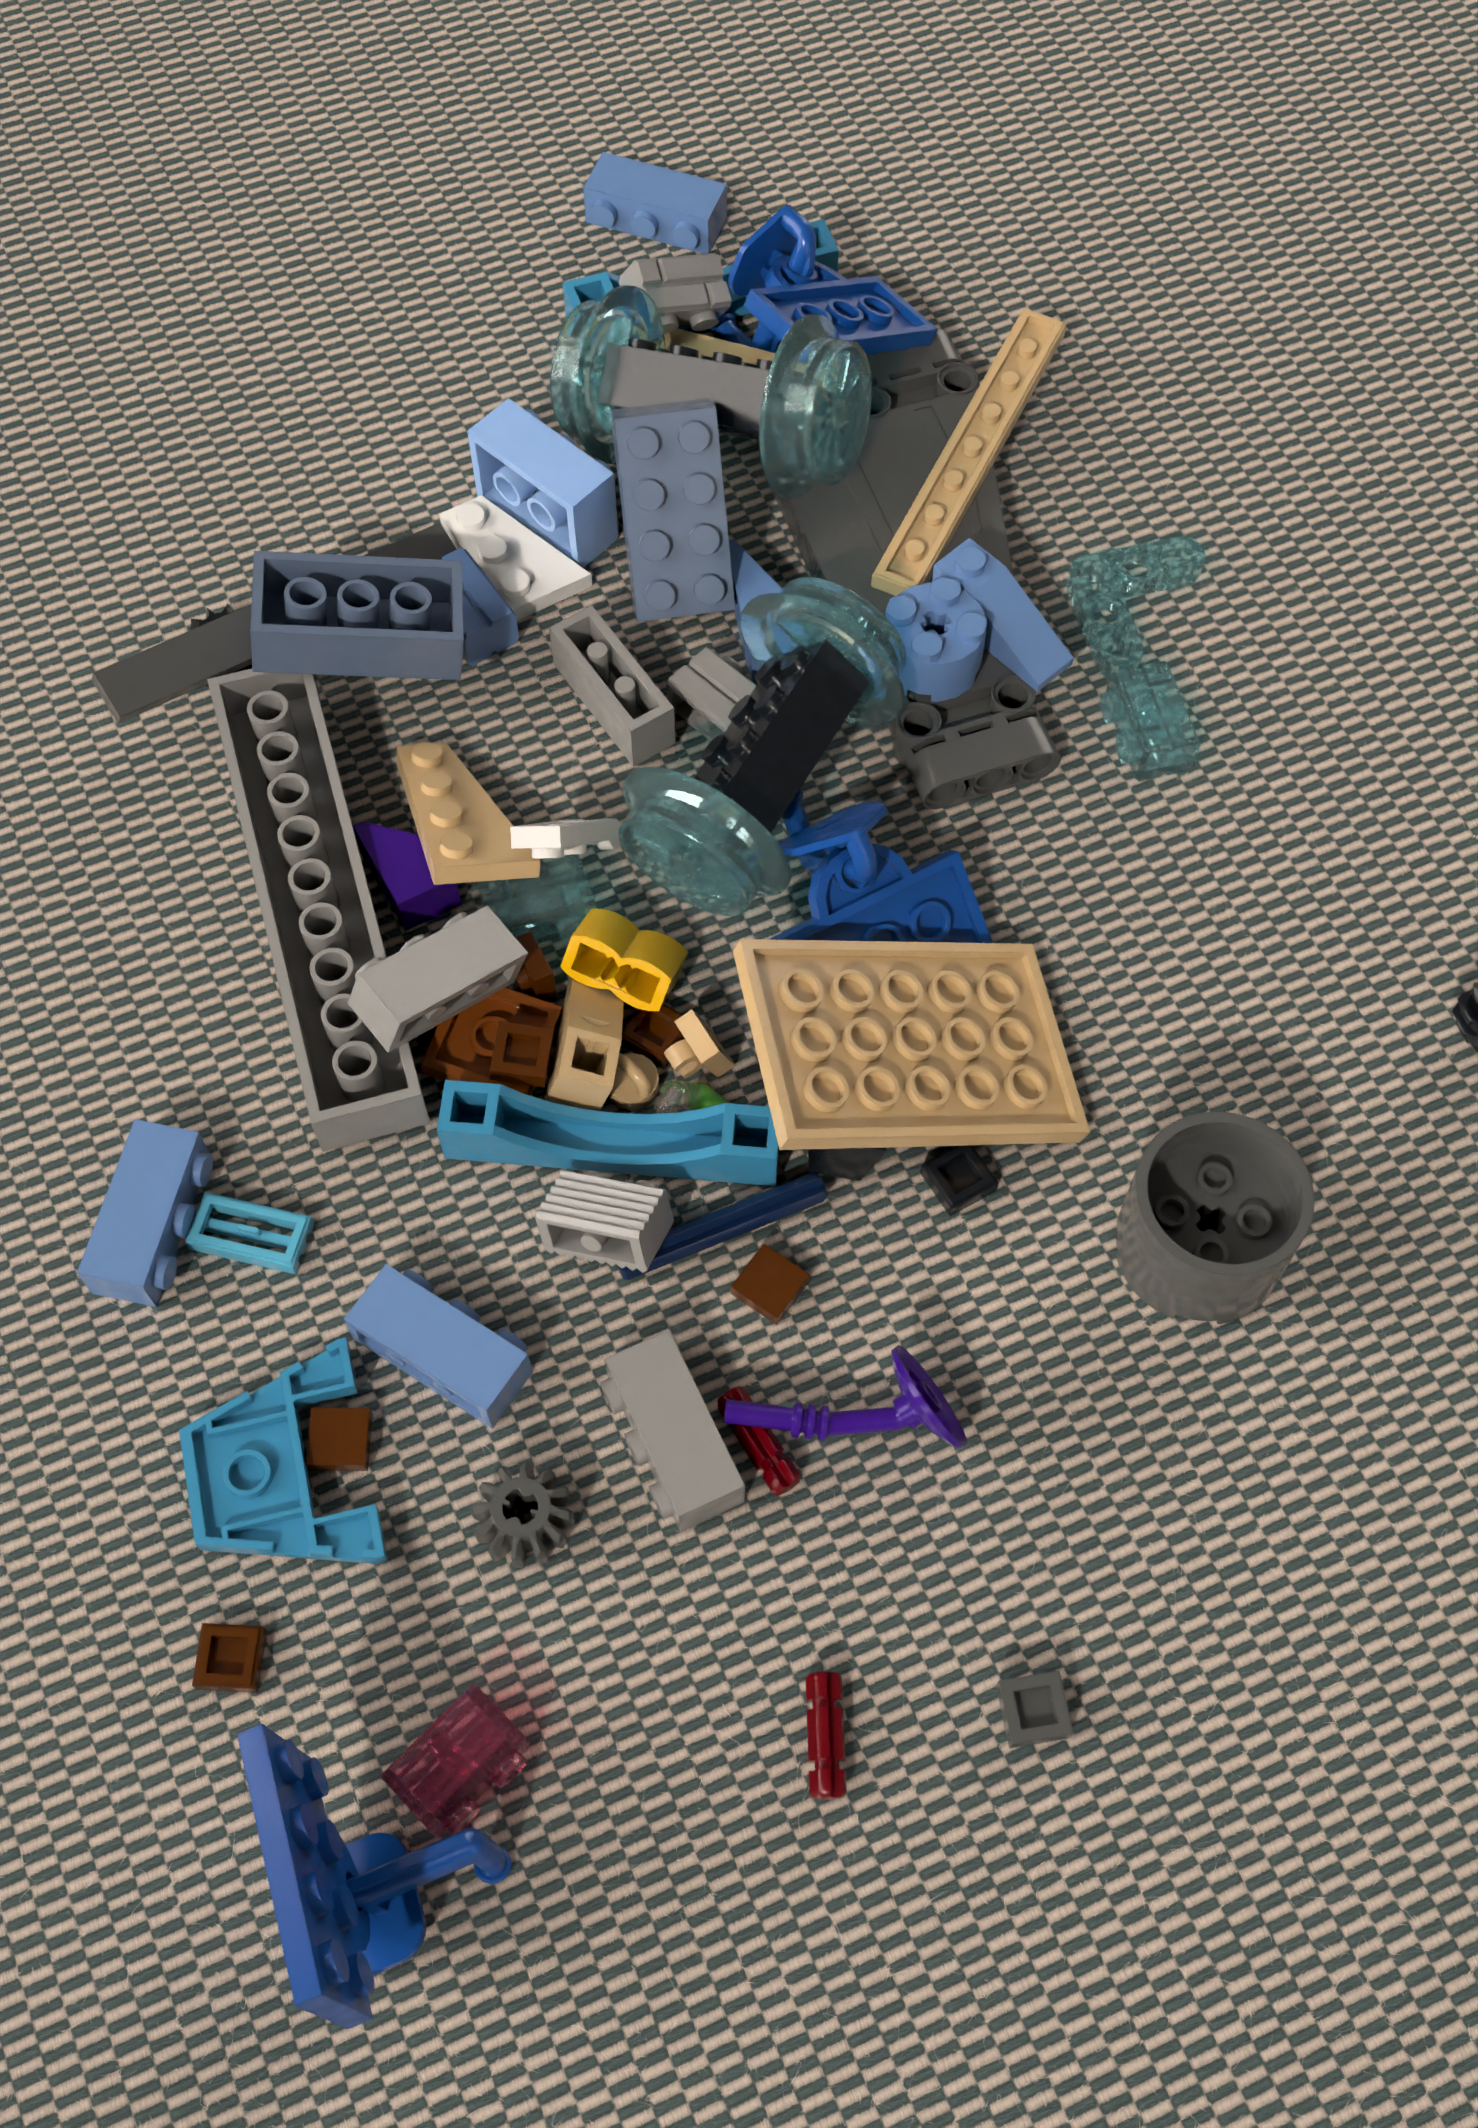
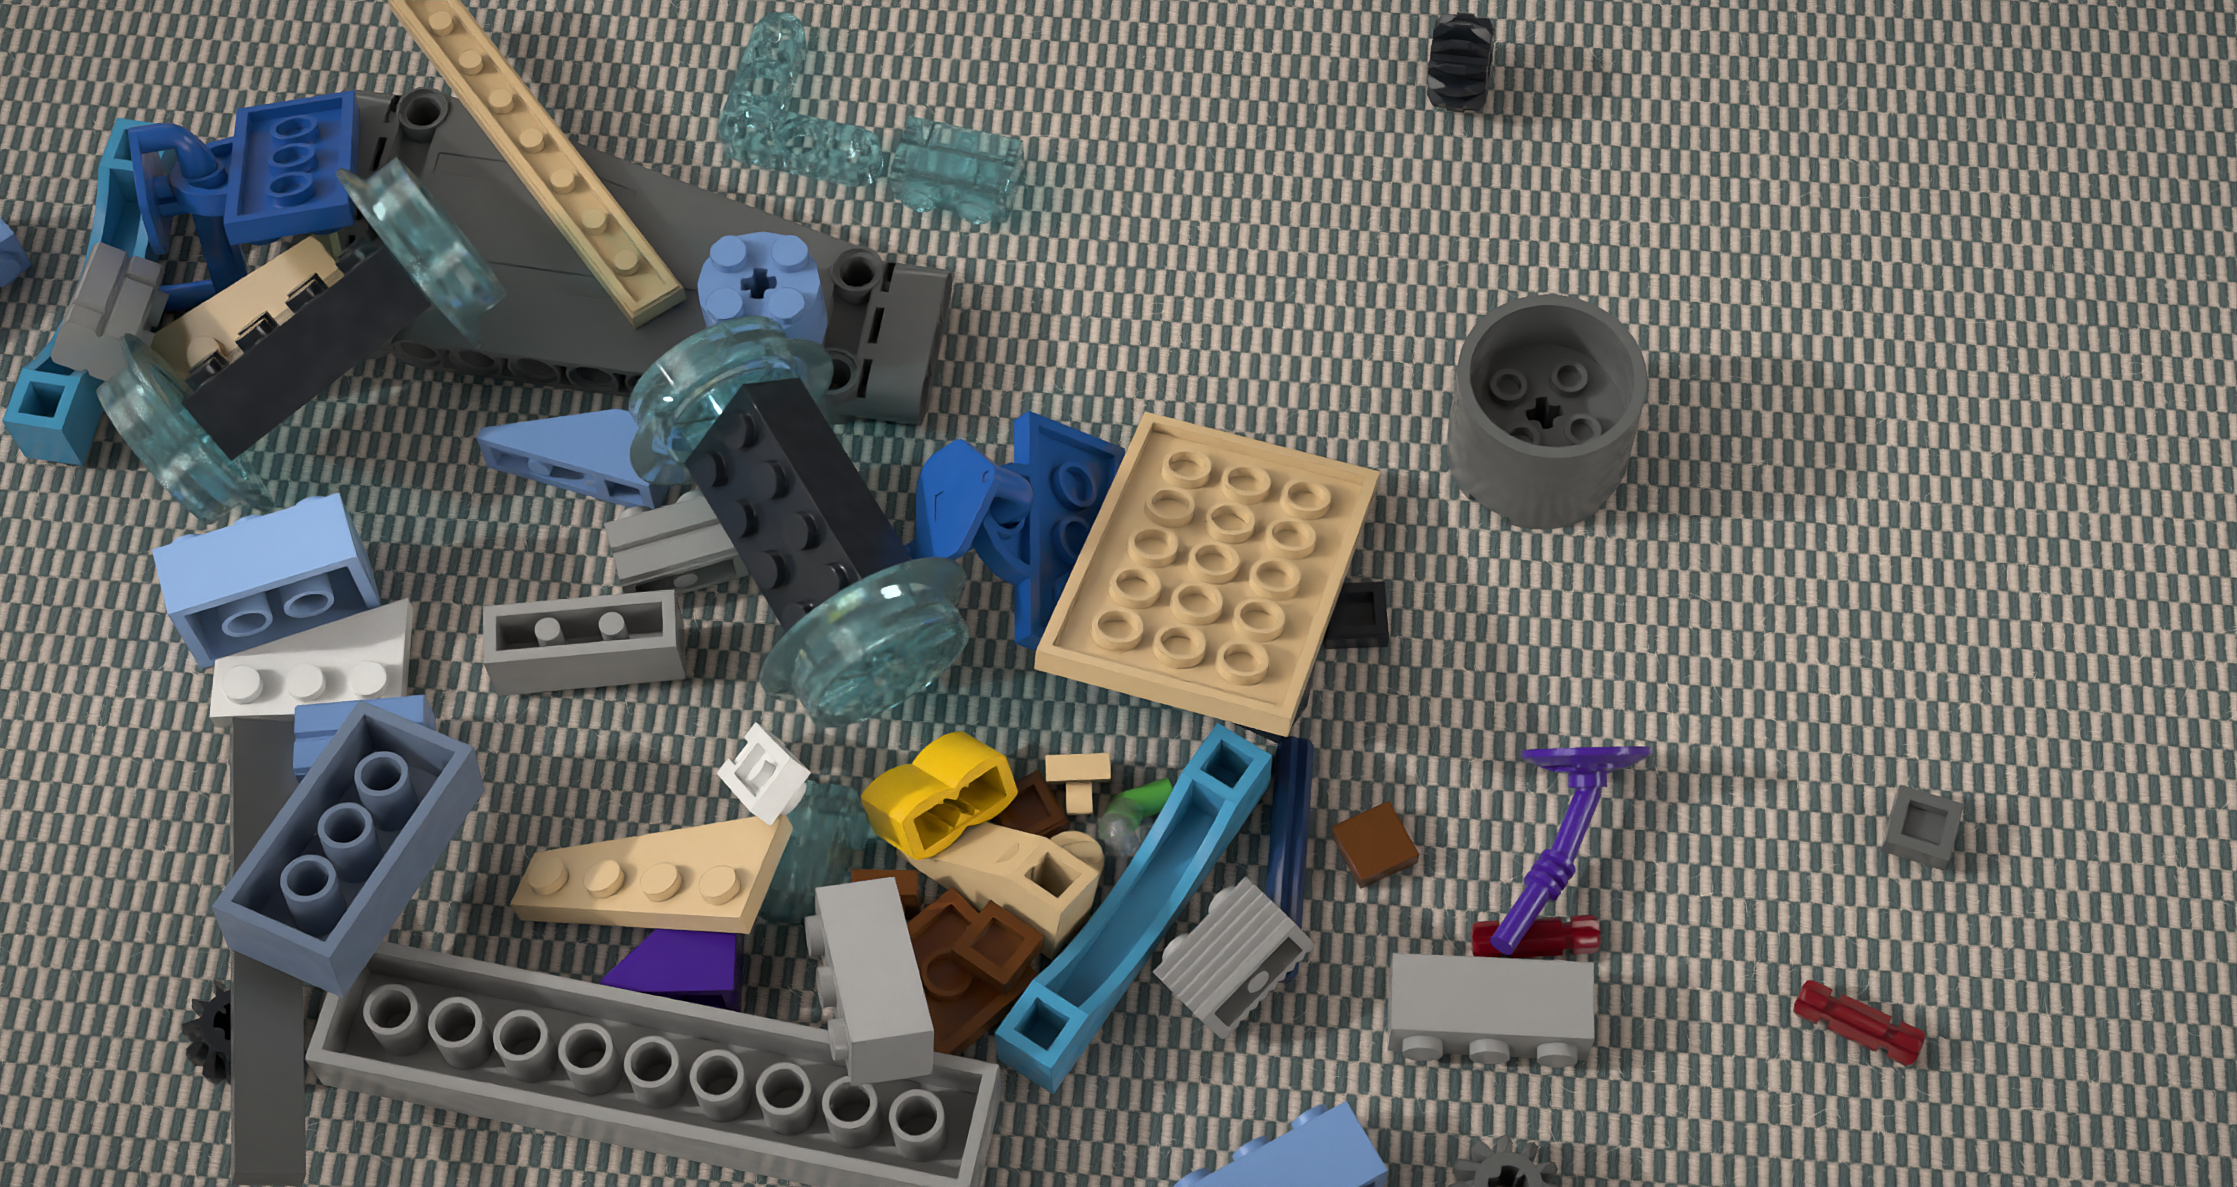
camera: 60 degrees left, 0 degrees up
(673, 509) = (428, 457): sand blue brick -> none
(1015, 627) = (823, 219): medium blue slope -> none

